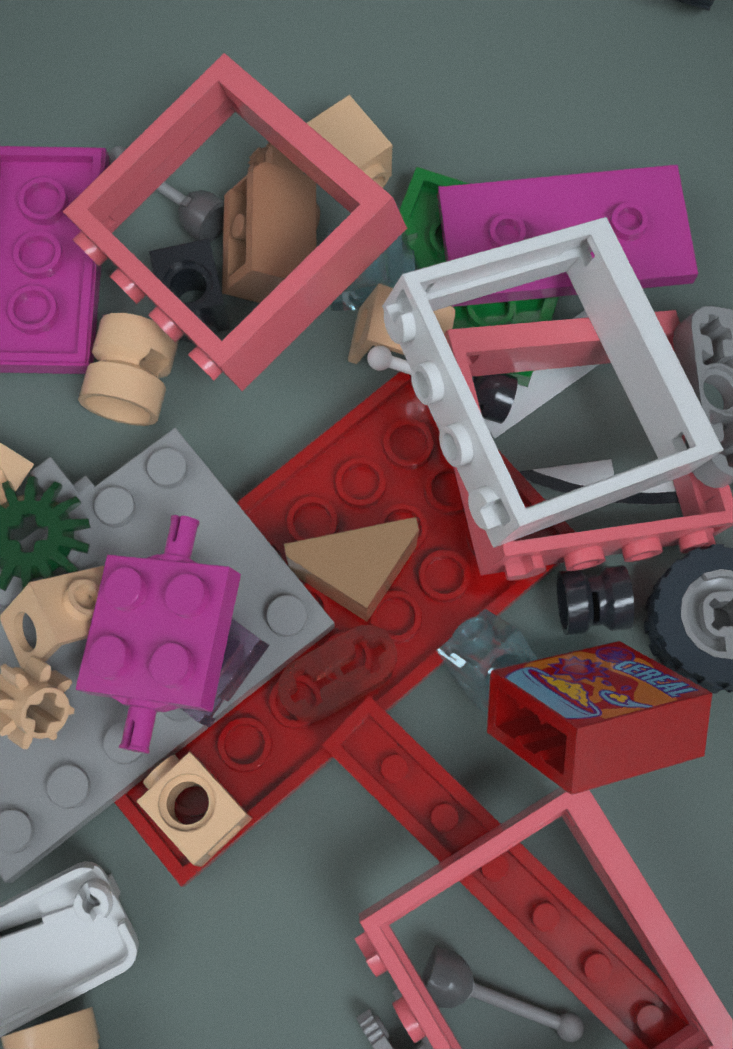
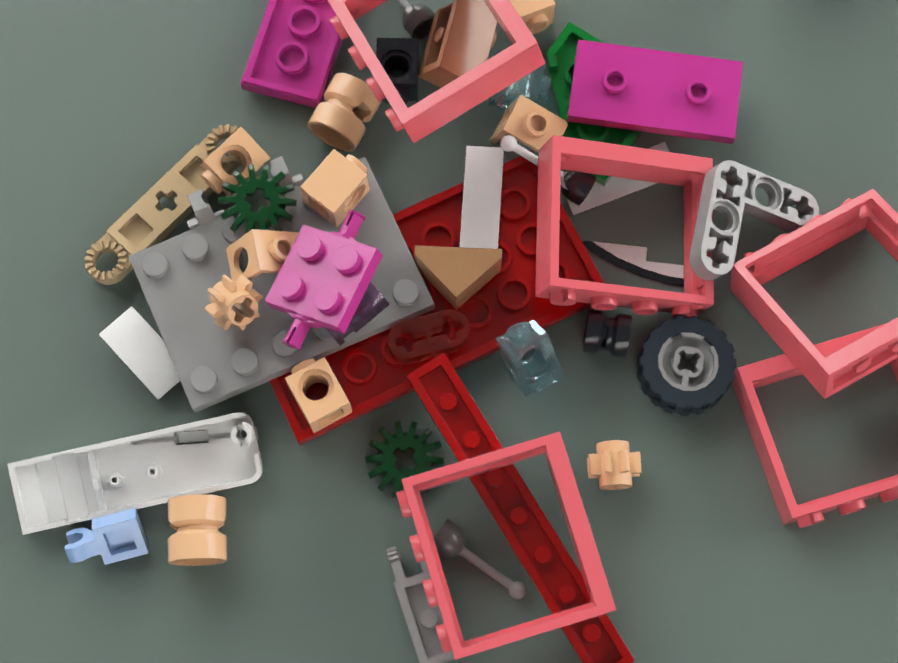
camera: 15 degrees right, 0 degrees up
(143, 484) = (336, 187): none -> light nougat brick
(338, 840) = (403, 441): none -> dark green gear
(360, 448) = (481, 197): none -> white sticker
(597, 715) = (583, 398): red brick -> none
(627, 332) = (670, 165): white window -> none
(663, 800) = (614, 465): none -> light nougat gear

